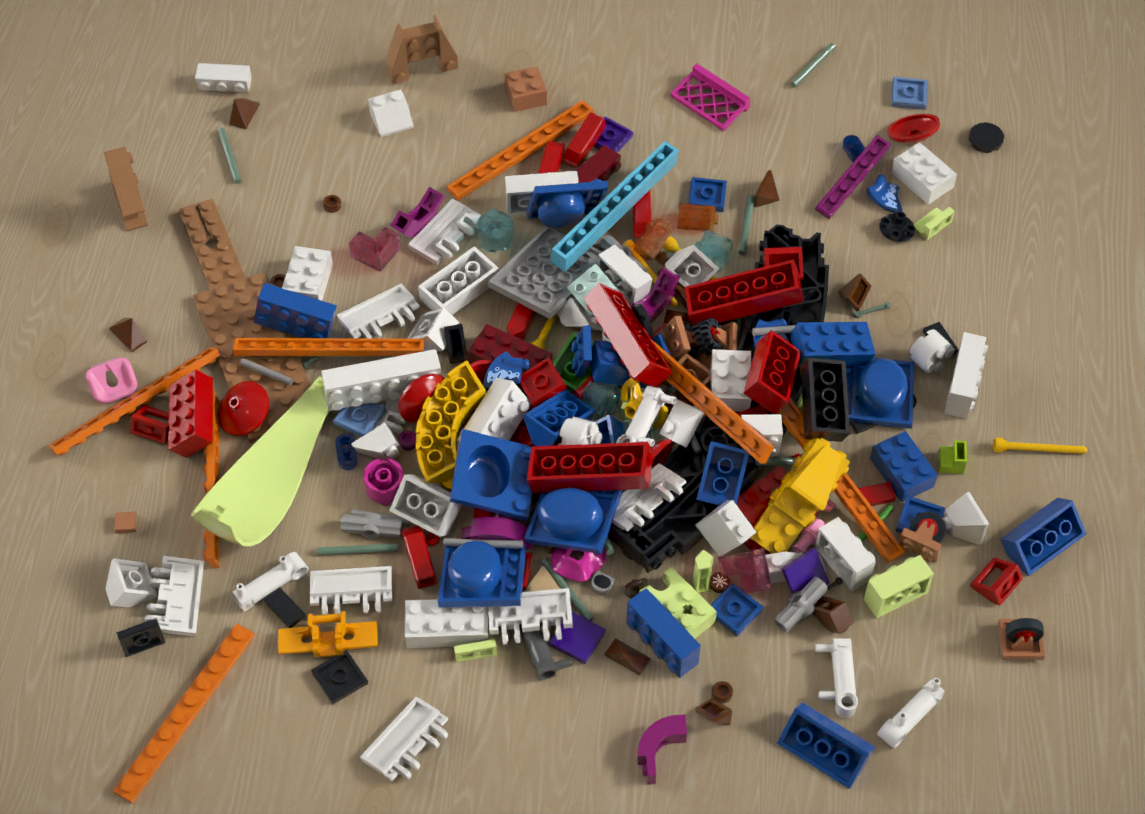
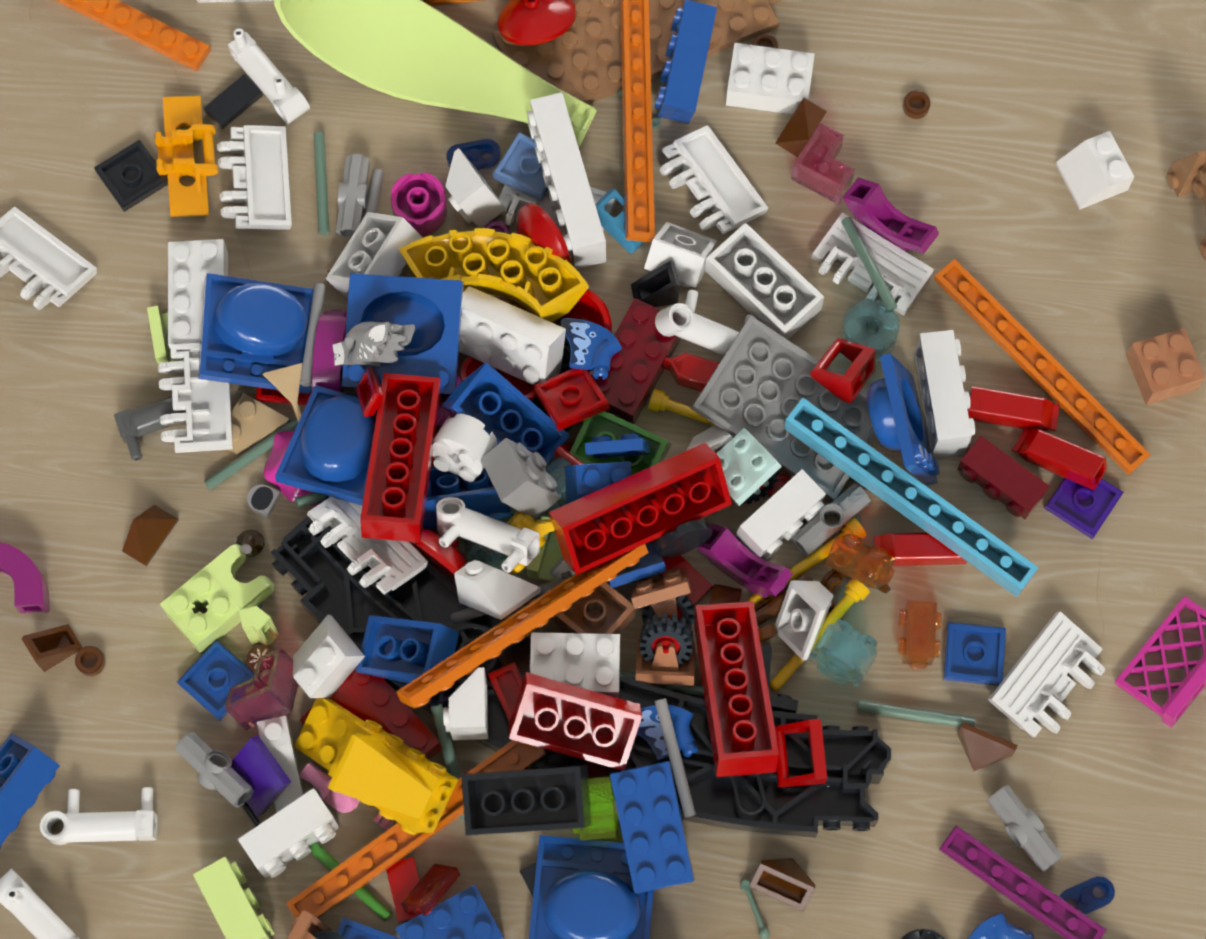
camera: 90 degrees right, 15 degrees up
(266, 371) = (597, 40): light grey bar -> none
(348, 257) = (801, 127): none -> reddish brown slope
(419, 557) = (302, 257): red piece -> none
(447, 227) = (869, 263): none -> sand green bar
(494, 313) = (695, 327): none -> white piece
(507, 484) = (372, 343): none -> light grey piece
(518, 230) = (849, 385): none -> red tile
(521, 555) = (287, 382): none -> tan piece
(540, 489) = (369, 392): none -> red tile
(580, 640) = (179, 473): dark purple tile -> none
(604, 401) = (521, 478): none -> light grey brick
(662, 633) = (164, 572): blue brick -> none
(724, 162) = (1042, 678): none -> white hinge
(815, 174) = (1024, 828): none -> light grey piece
(833, 614) = (198, 814): reddish brown slope -> none
(889, 478) = (430, 889): none -> clear red tile

